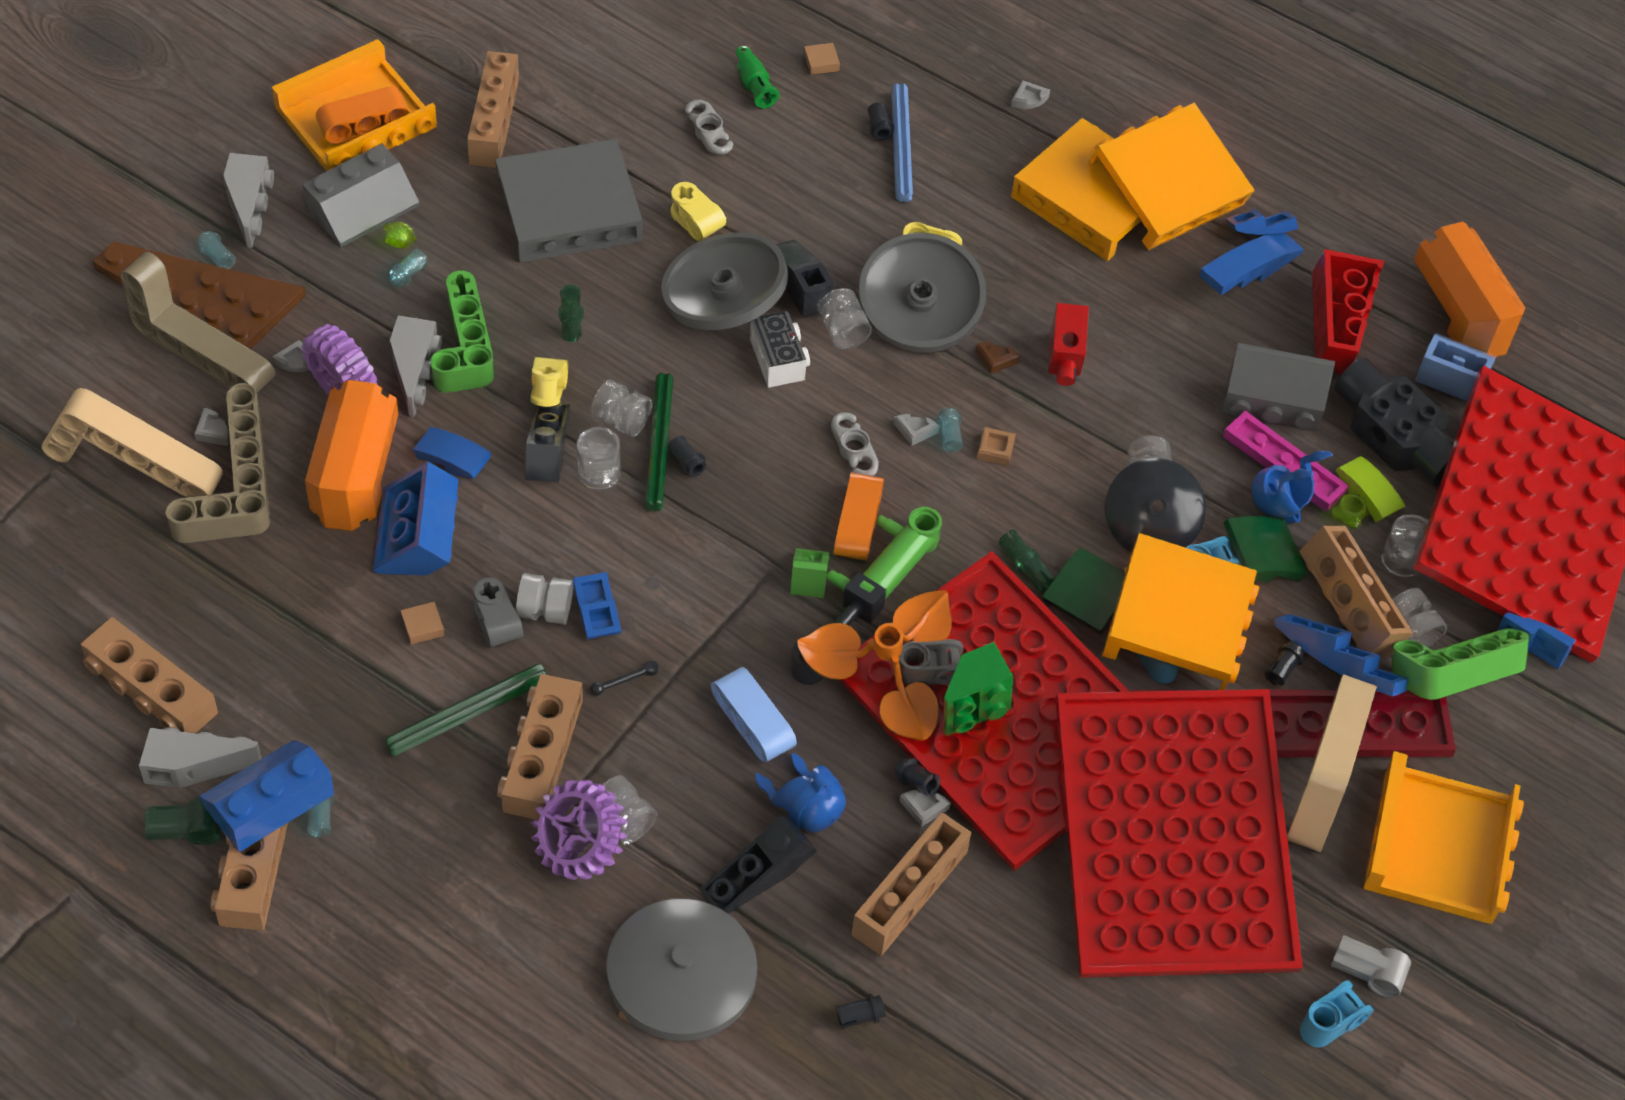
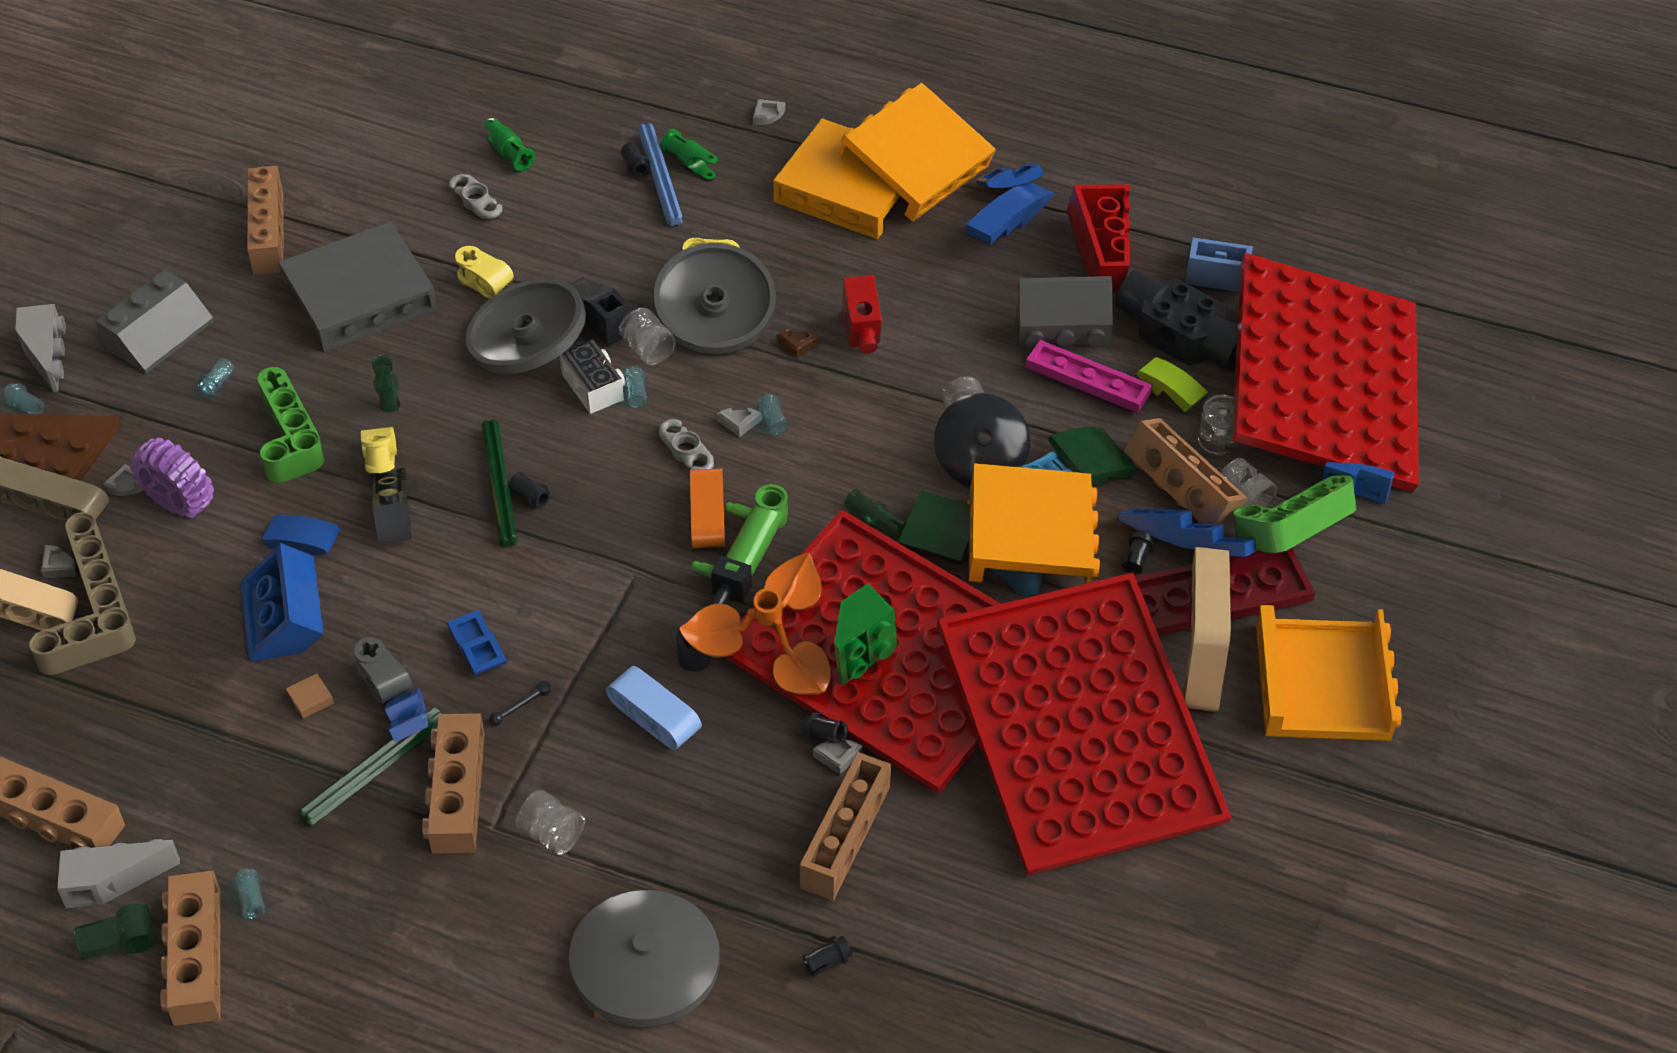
camera: 10 degrees left, 5 degrees down
(269, 793) = (196, 884): blue slope -> none
(341, 78) = (126, 244): light orange panel -> none
(351, 455) = (202, 556): orange brick -> none
(360, 114) = (139, 249): orange beam -> none
(399, 234) = (201, 349): clear neon green plate -> none
(411, 351) = (239, 454): light grey slope -> none
(510, 665) = (406, 714): none -> blue slope
(544, 598) = (424, 646): light grey wheel -> none
(596, 818) = (501, 875): medium lavender gear -> none
(598, 458) = (445, 508): clear wheel -> none
(617, 406) = (450, 457): clear wheel -> none
(759, 866) = (695, 844): black slope -> none
(809, 573) = (674, 569): bright green slope -> none
(812, 800) = (730, 772): blue hair -> none
(819, 370) = (635, 384): none -> clear light blue pin
(821, 58) = (566, 117): medium nougat tile -> none
(932, 660) = (812, 619): dark grey piece -> none
(937, 126) = (689, 153): none -> green piece
(996, 446) = (819, 420): medium nougat tile -> none
(1283, 492) = (1097, 402): blue hair -> none
(1339, 1011) = (1276, 850): dark azure piece -> none
(1354, 504) = (1160, 406): clear neon green plate -> none
(1382, 969) = (1305, 801): light grey piece -> none
(1470, 288) = (1213, 193): orange brick -> none

